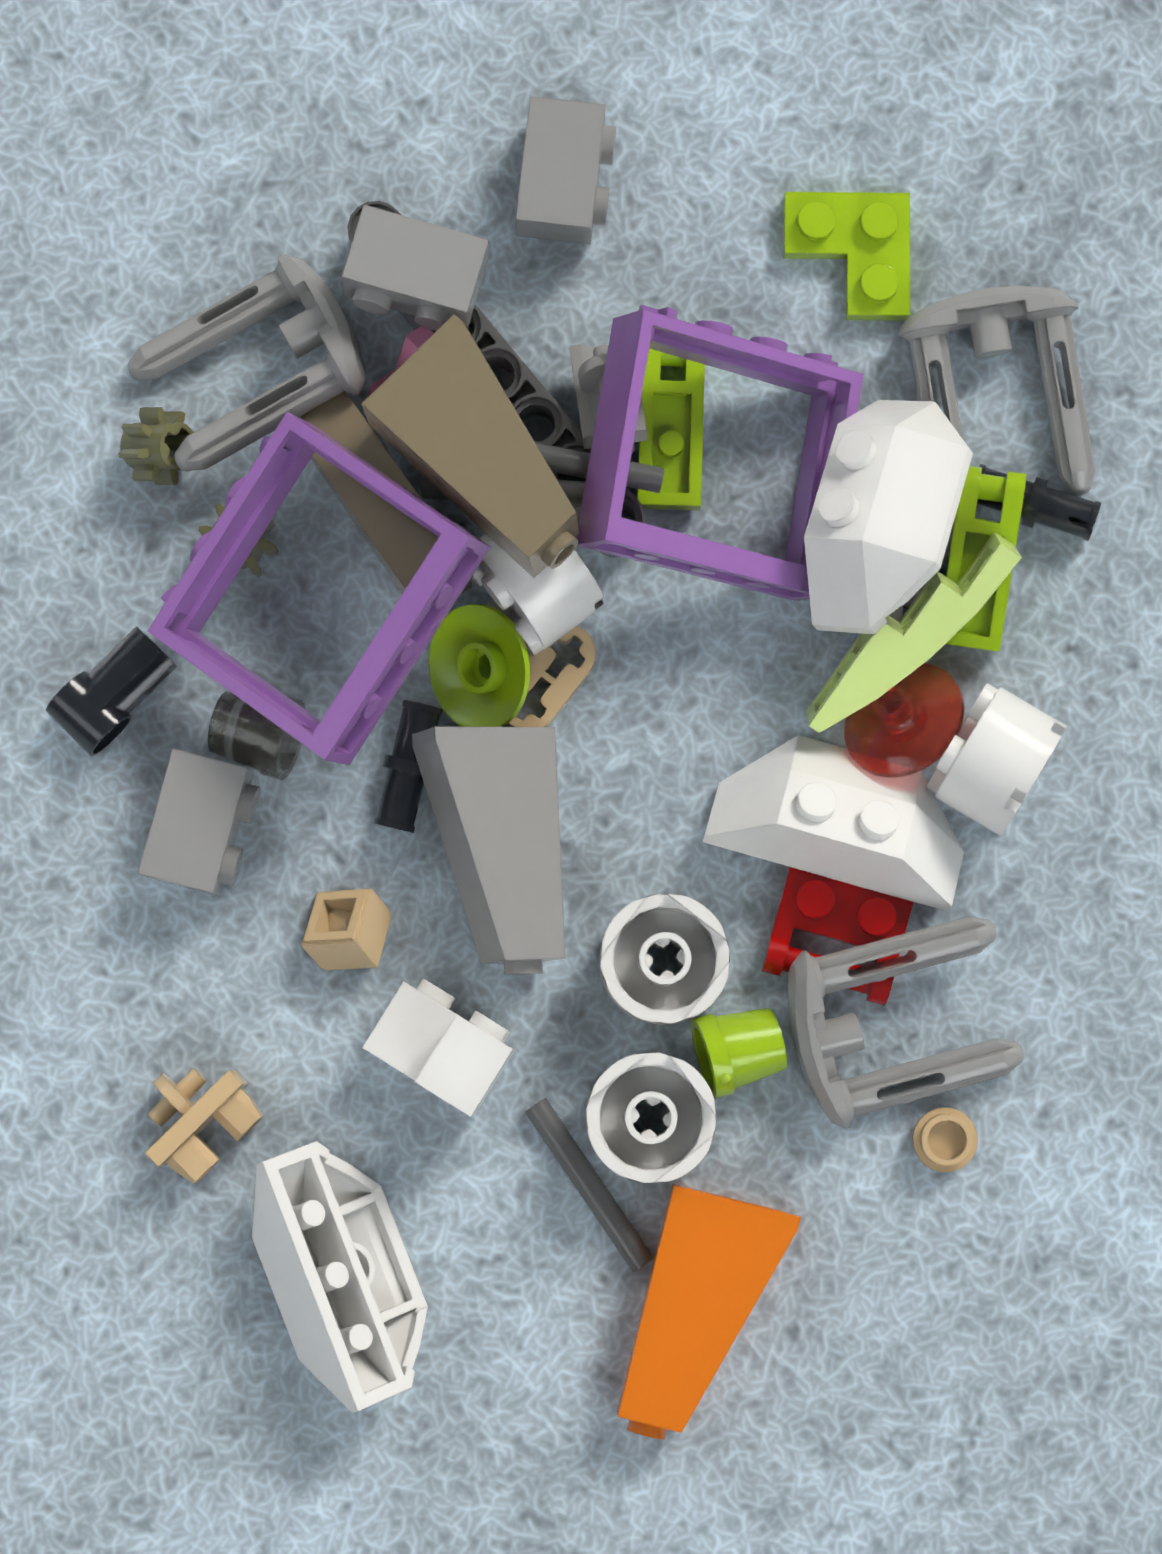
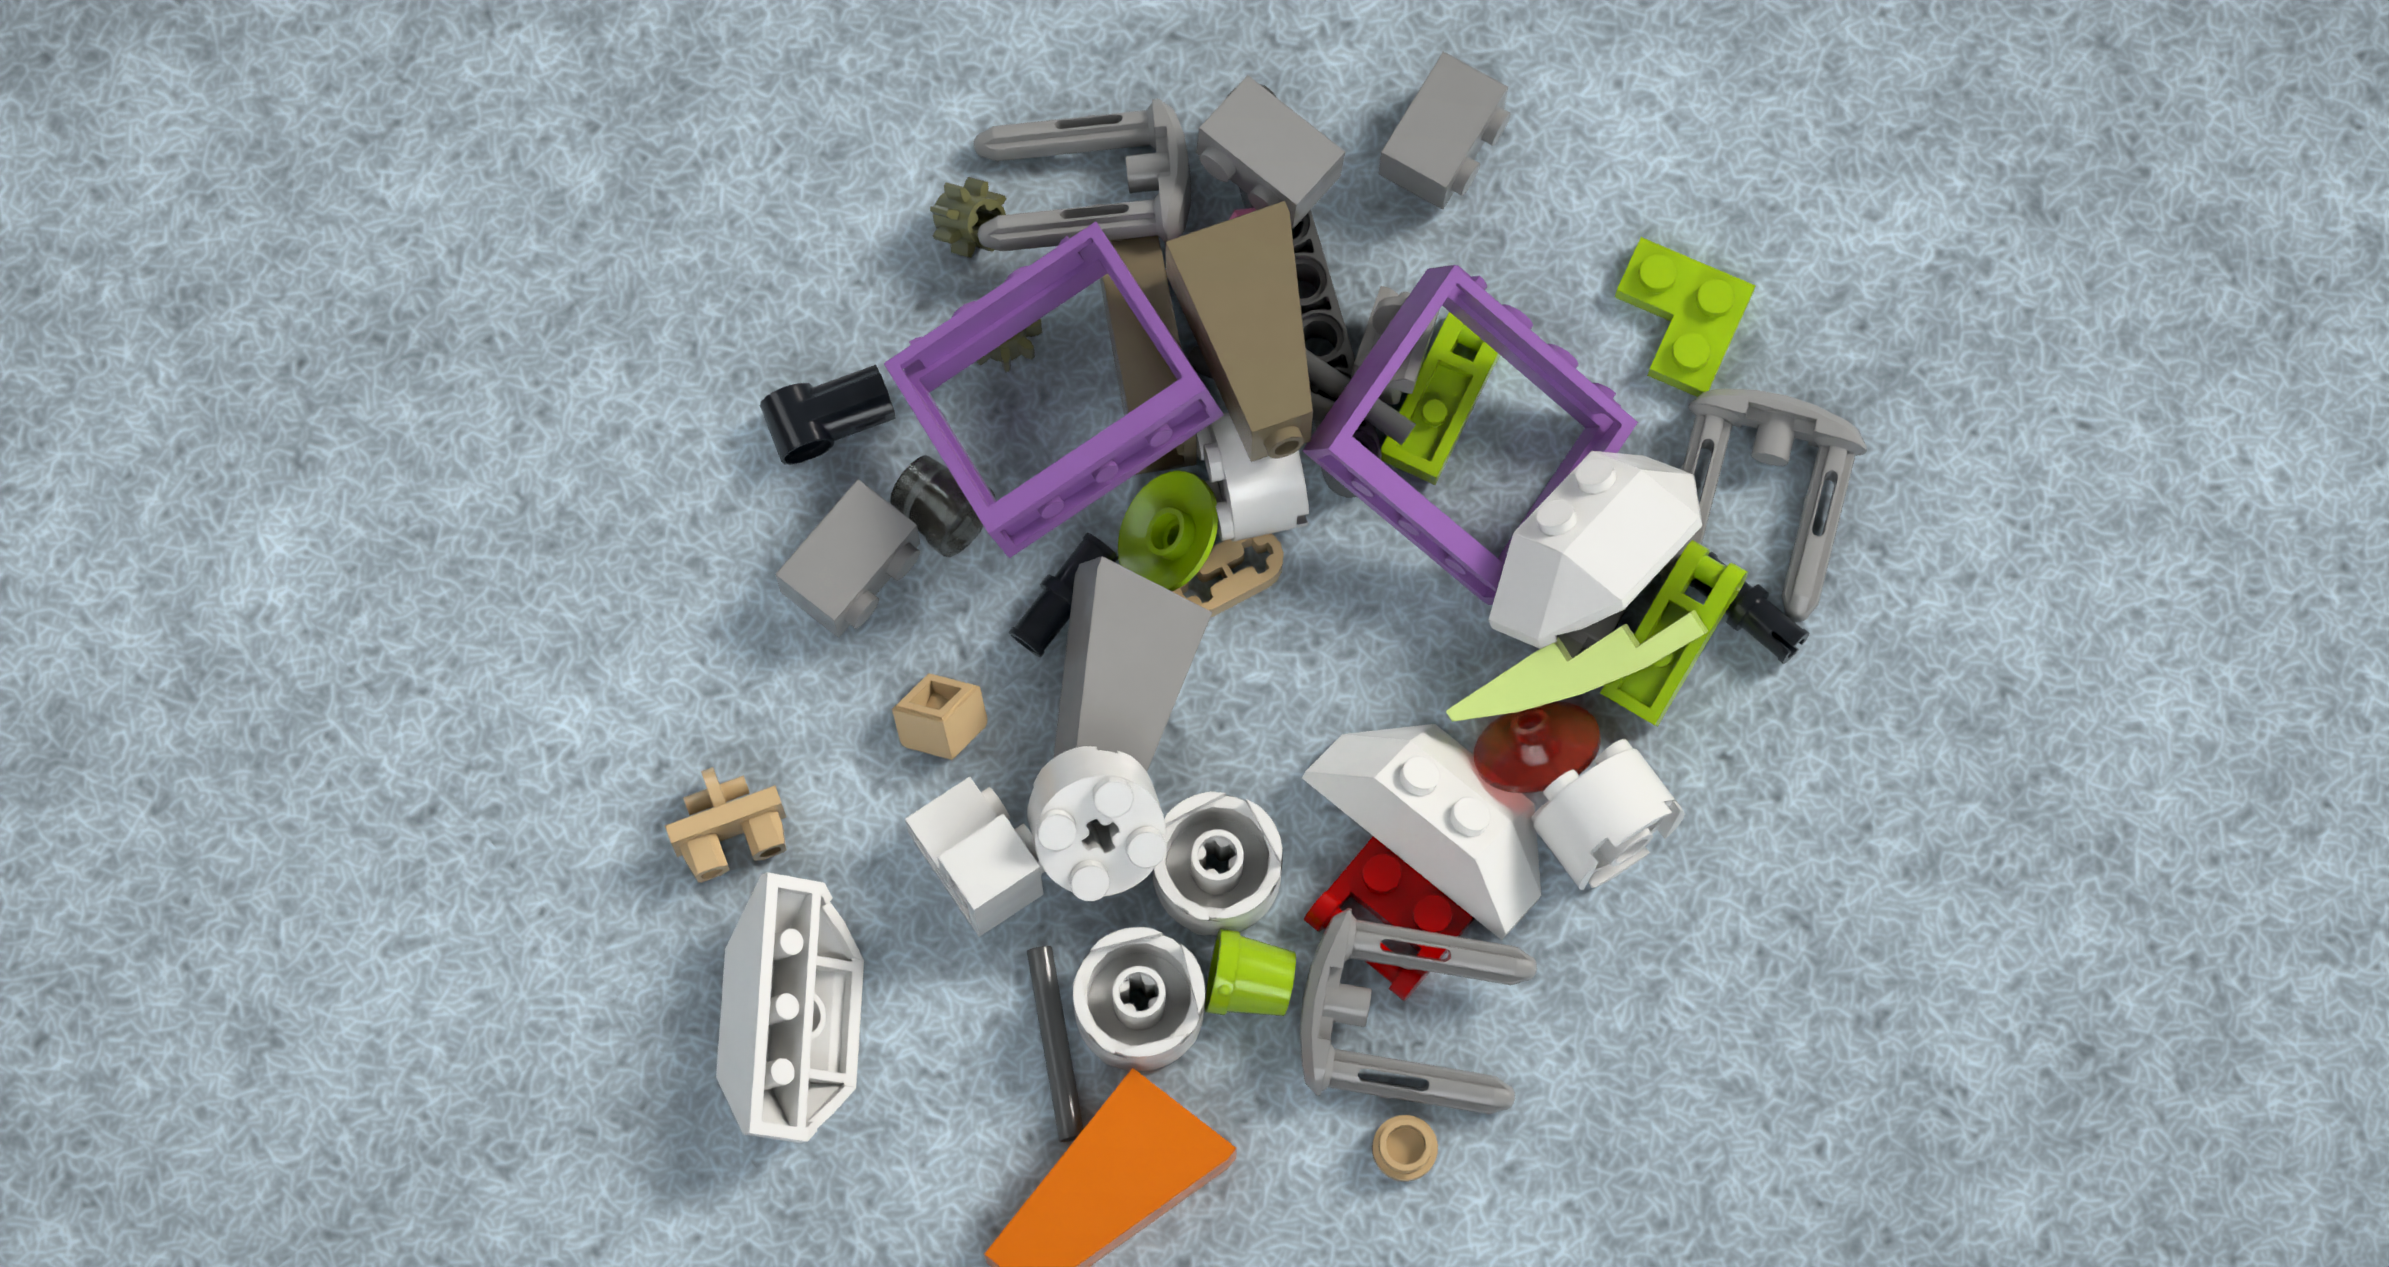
camera: 25 degrees right, 10 degrees down
(543, 980) = (1102, 855): none -> white brick

